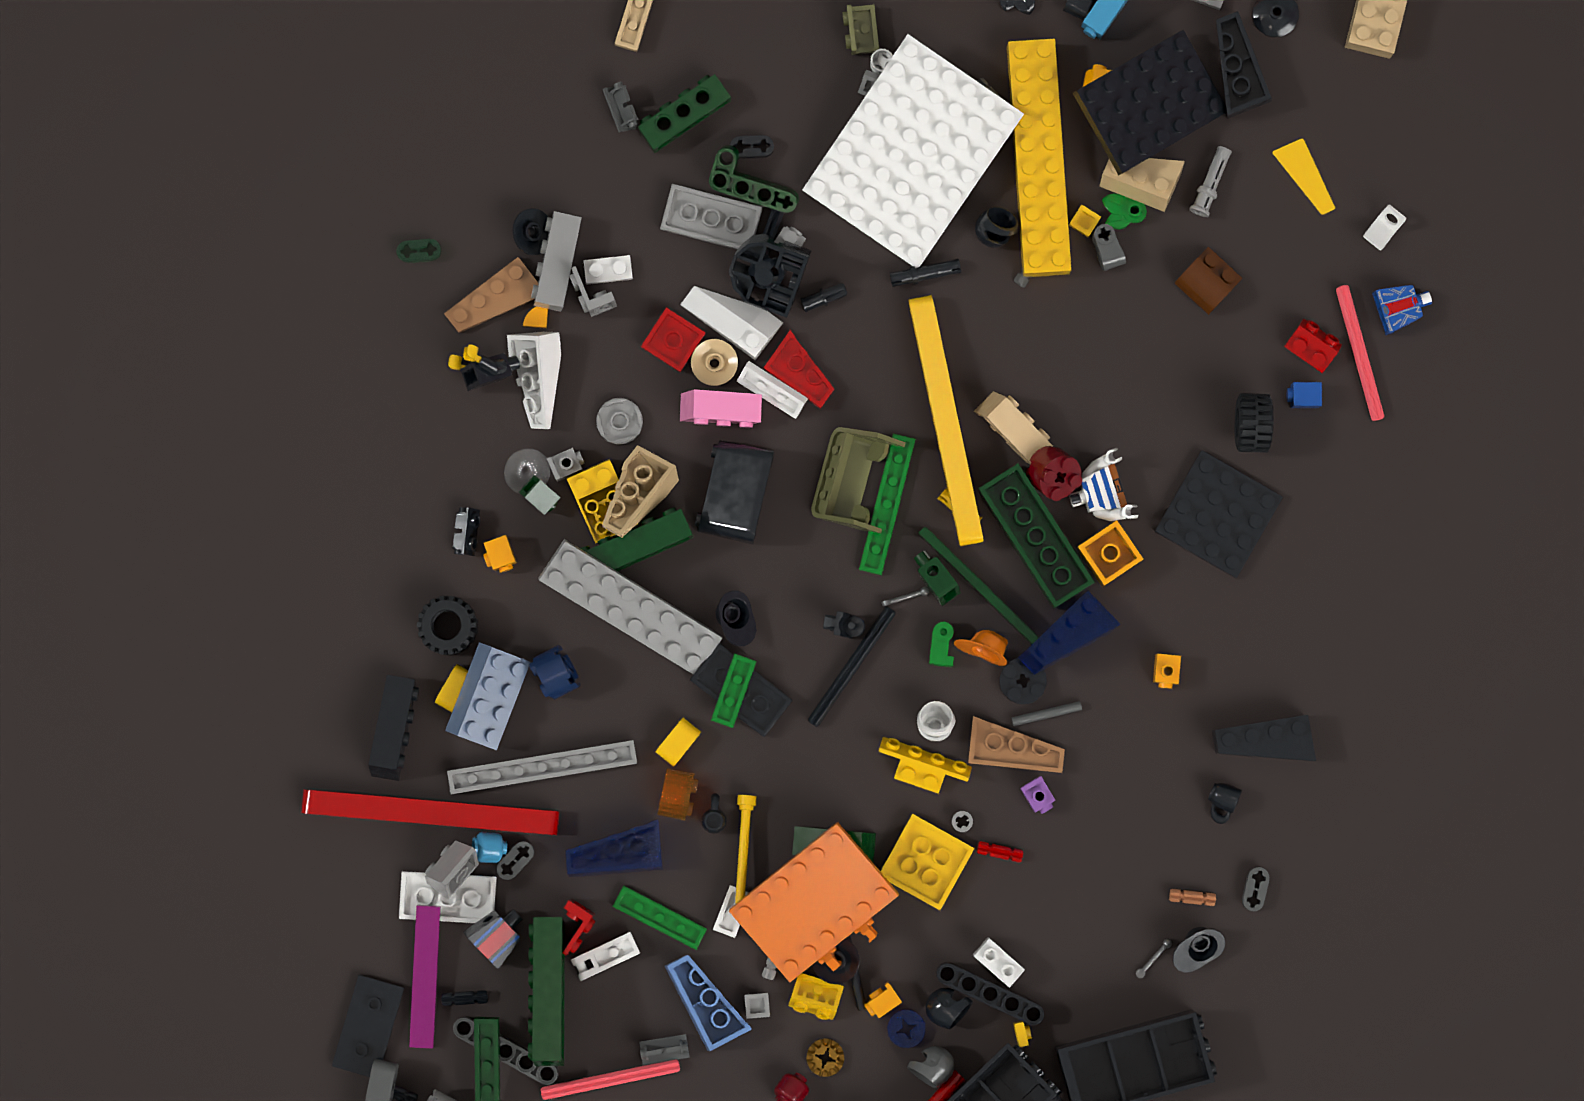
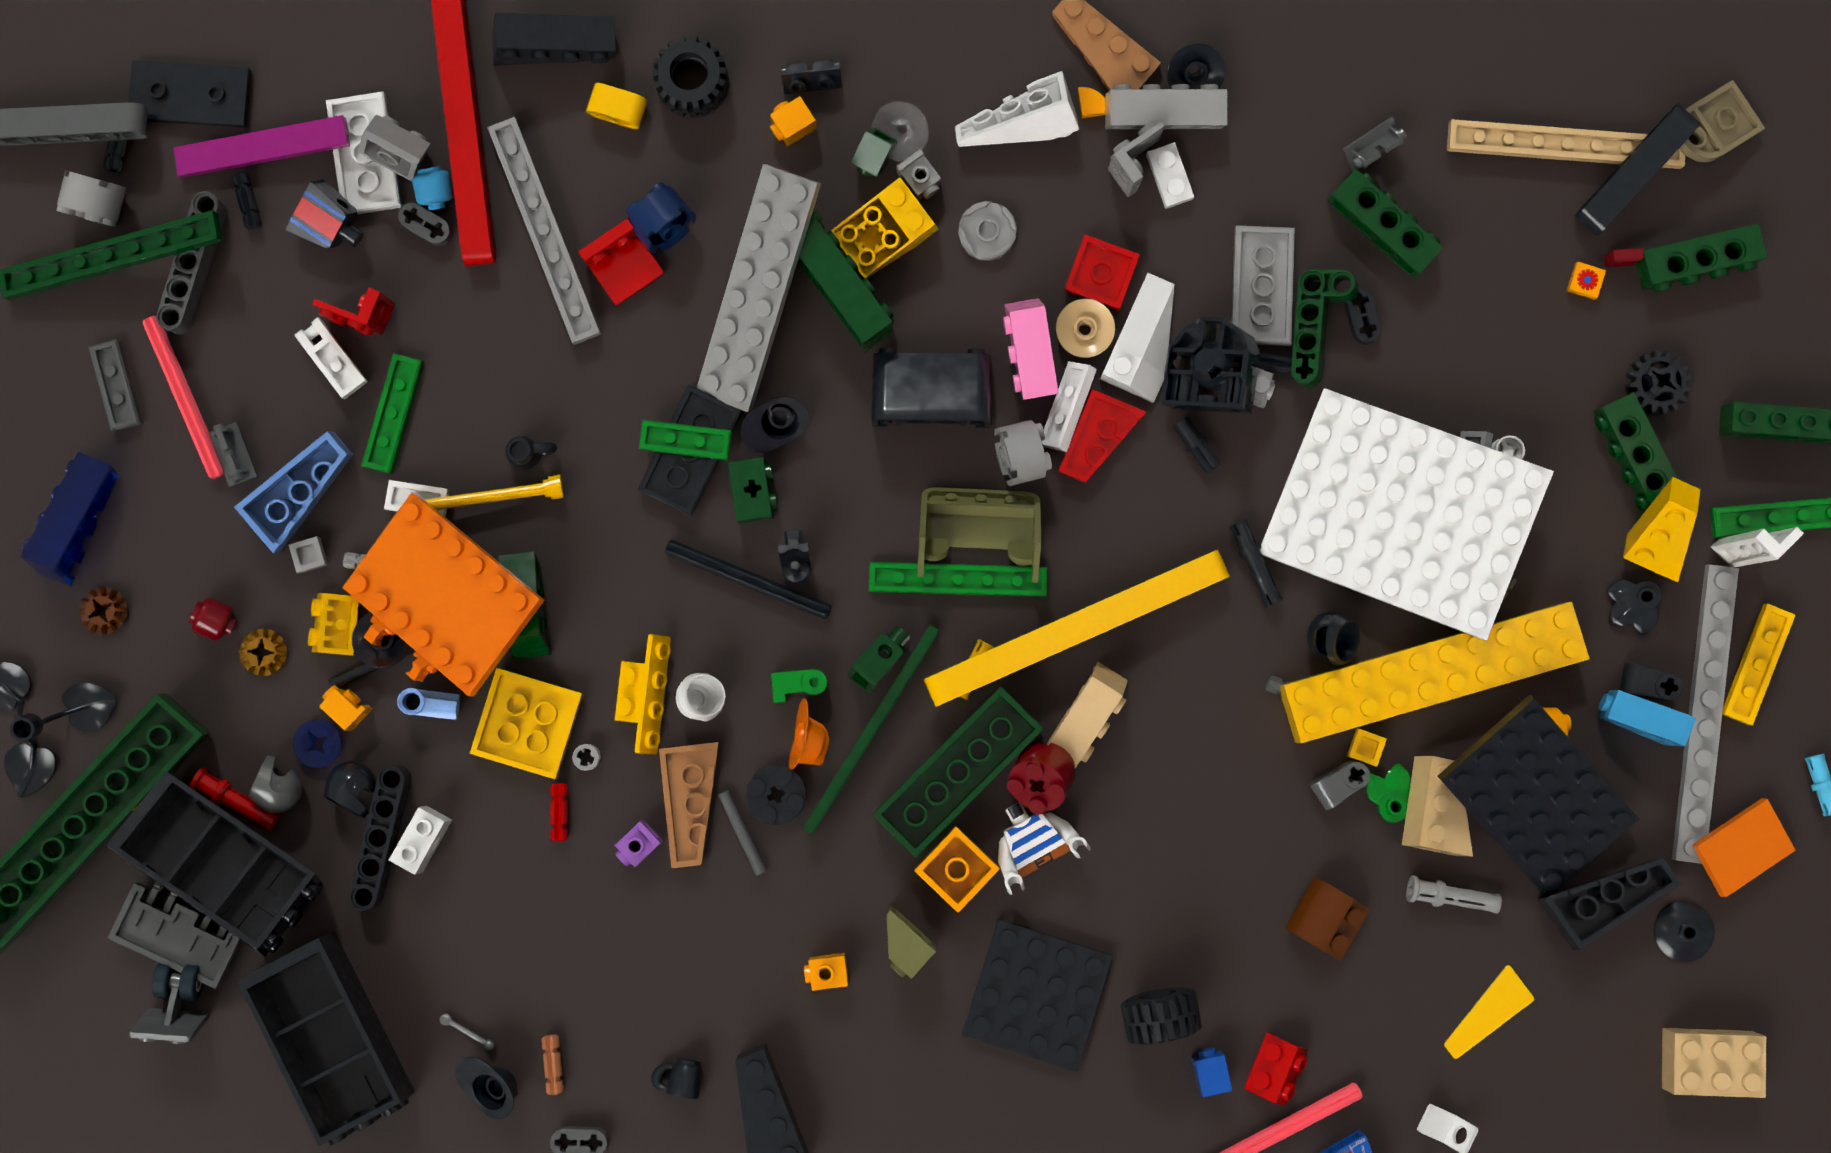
camera: 80 degrees right, 0 degrees up
(484, 369) = (1011, 50): black torso -> none
(487, 696) = (613, 142): sand blue brick -> none
(548, 991) = (262, 293): dark green brick -> none
(583, 711) = (621, 262): none -> red bracket
(618, 853) = (460, 354): clear blue wedge -> none
(641, 487) = (908, 270): tan wedge -> none
(677, 793) = (545, 400): clear orange brick -> none
(678, 742) = (609, 387): yellow beam -> none
(771, 654) = (746, 507): none -> dark green brick
(801, 432) = (1022, 452): none -> light grey brick
(862, 29) = (1542, 418): olive bracket -> none
(895, 931) = (431, 703): none -> light blue piece
(924, 591) = (860, 647): flat silver hinge -> none
(1022, 1033) = (337, 889): yellow plate -> none
(1074, 629) = (850, 843): clear blue wedge -> none
(1159, 604) = (906, 945): none -> olive slope

